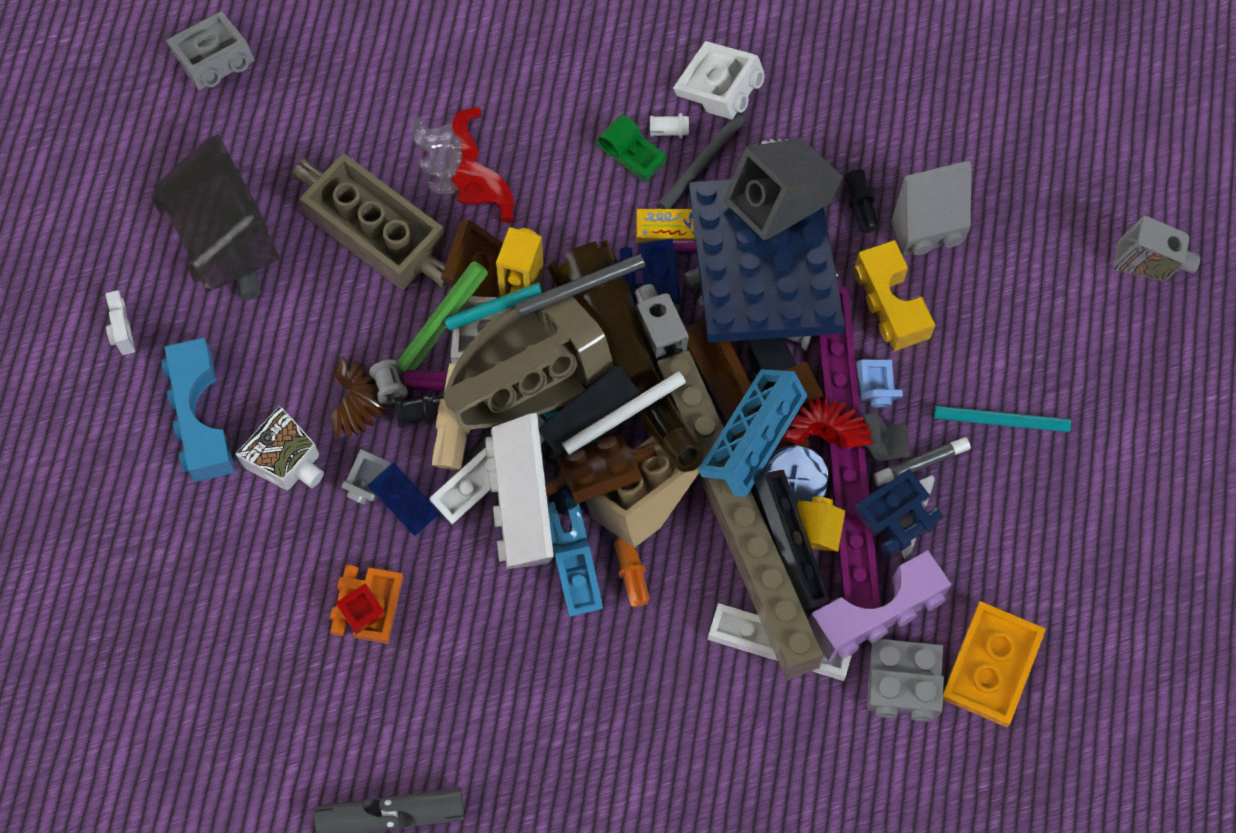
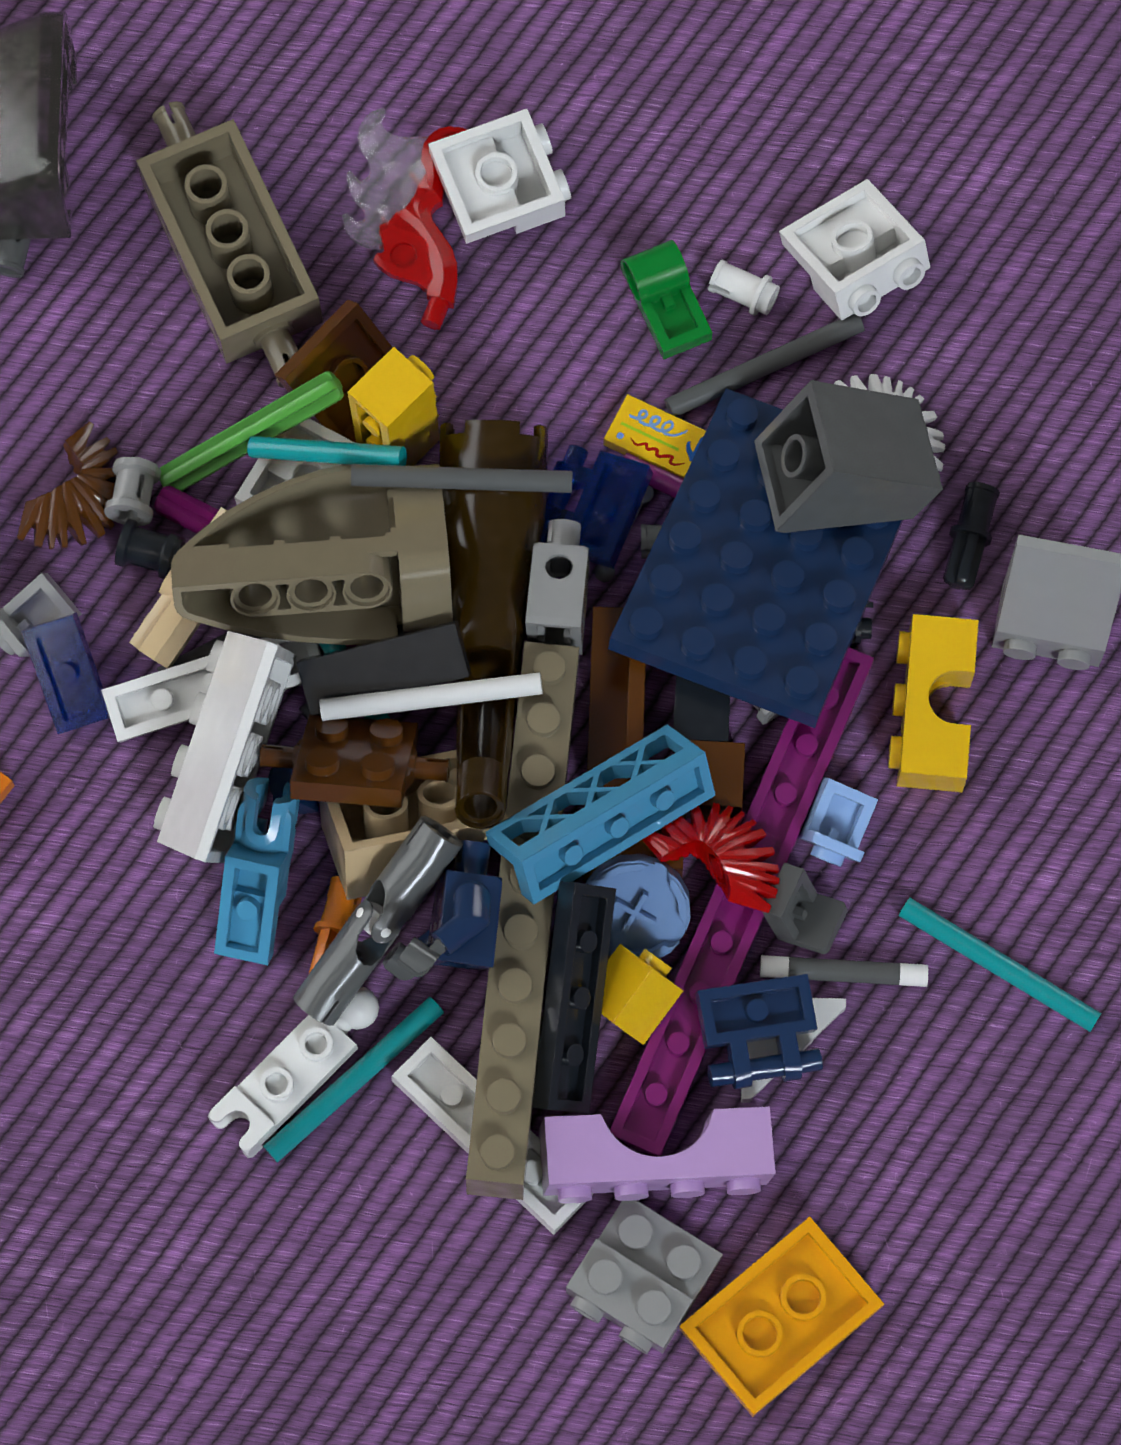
camera: 30 degrees right, 5 degrees up
(506, 123) = (500, 176): none -> white plate
(651, 658) = (293, 1073): none -> white plate
(666, 522) = (381, 914): none -> dark grey piece
(684, 650) = (353, 1079): none -> teal bar
(707, 529) = (461, 920): none -> dark blue torso

